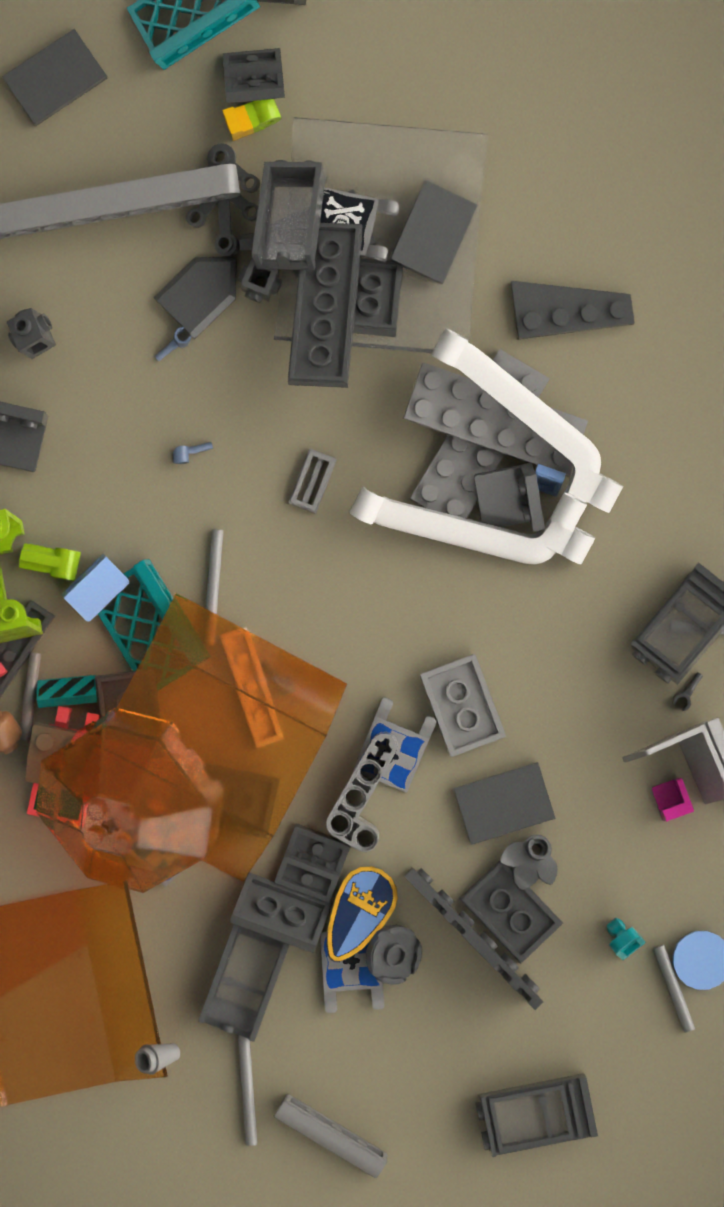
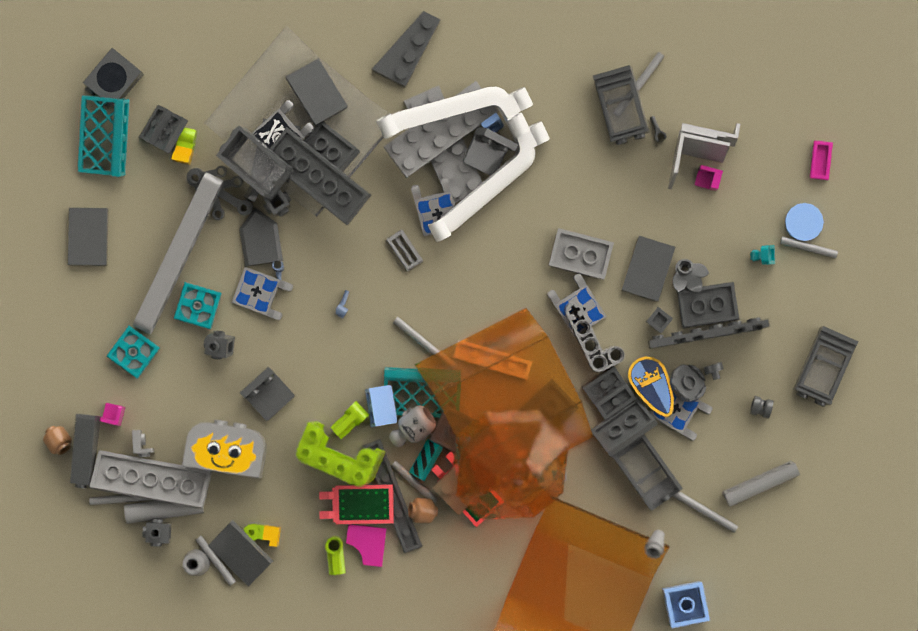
camera: 50 degrees left, 0 degrees up
(62, 272) = (197, 305): none -> teal piece
(97, 646) = (413, 426): none -> light grey piece
(110, 1147) = (686, 604): none -> light blue brick
(133, 334) = (258, 291): none -> light grey flag
(391, 478) = (433, 206): none -> light grey flag
(423, 1065) = (758, 404): none -> dark grey wheel
(433, 976) = (714, 370): none -> dark grey tile
(447, 862) = (659, 320): none -> dark grey tile

